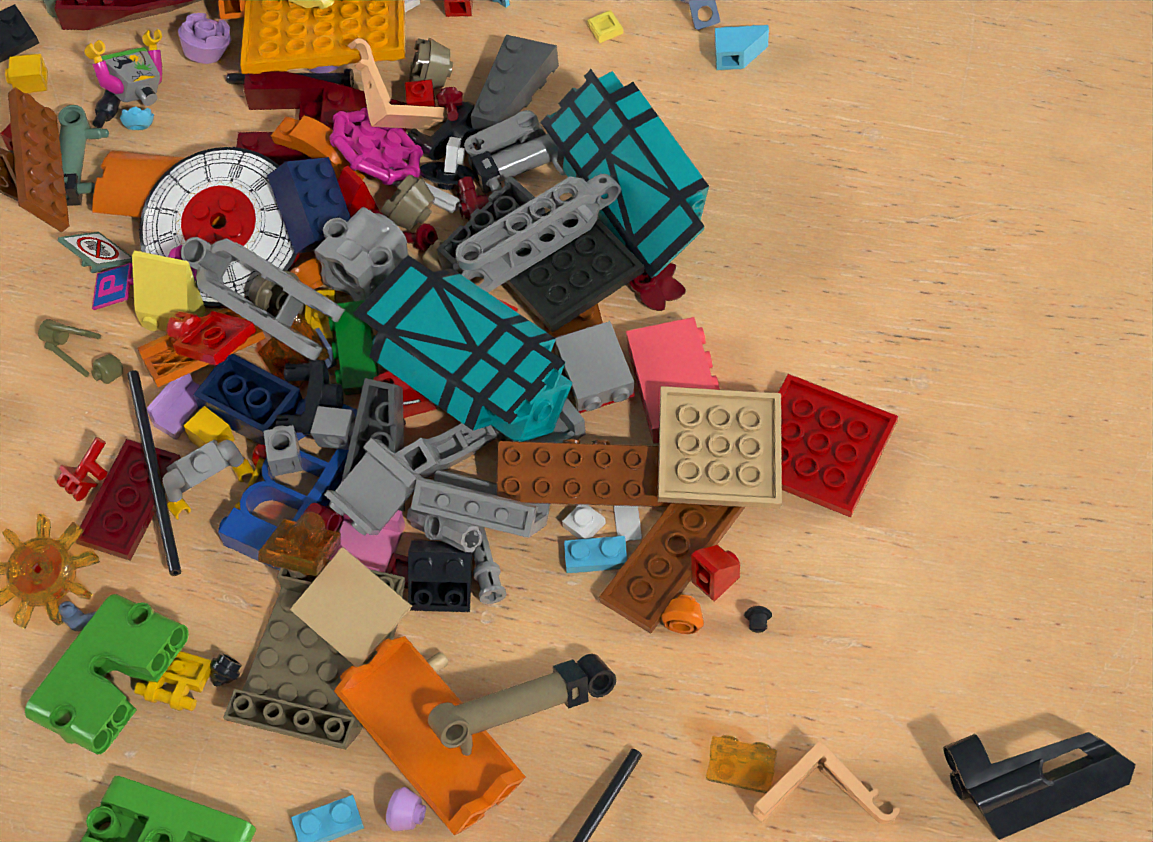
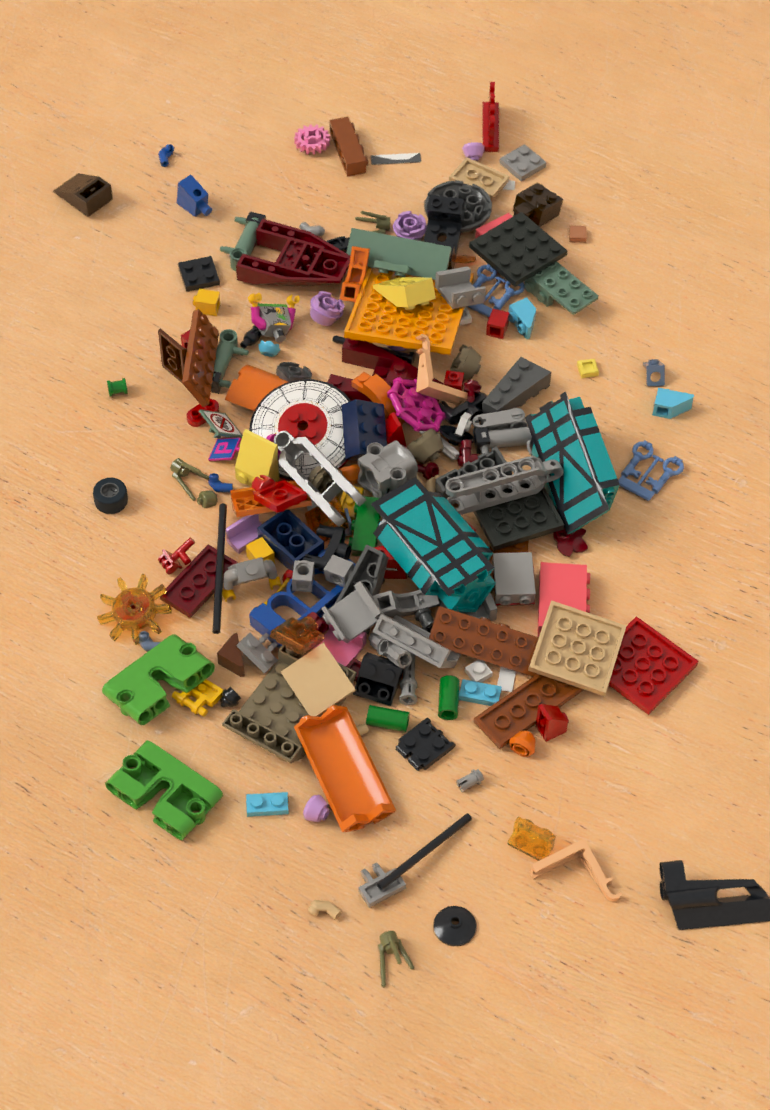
camera: 10 degrees right, 5 degrees down
(60, 253) = (198, 420): none -> red plate
(116, 343) = (217, 485): none -> blue arm
(180, 144) = (291, 371): none -> dark grey tile
(208, 604) = (230, 656): none -> reddish brown slope
(247, 587) = (257, 652): none -> light grey hinge
(471, 634) = (387, 718): none -> green pin
(482, 464) = (425, 619): none -> dark grey bush
(534, 653) = (424, 745): none -> black plate
(552, 576) = (448, 697): none -> green pin
(566, 685) = (436, 763): dark tan piece -> none
(622, 694) = (470, 780): none -> light grey pin
(756, 170) = (636, 488): none -> medium blue piece
(758, 618) = (570, 758): black piece -> none

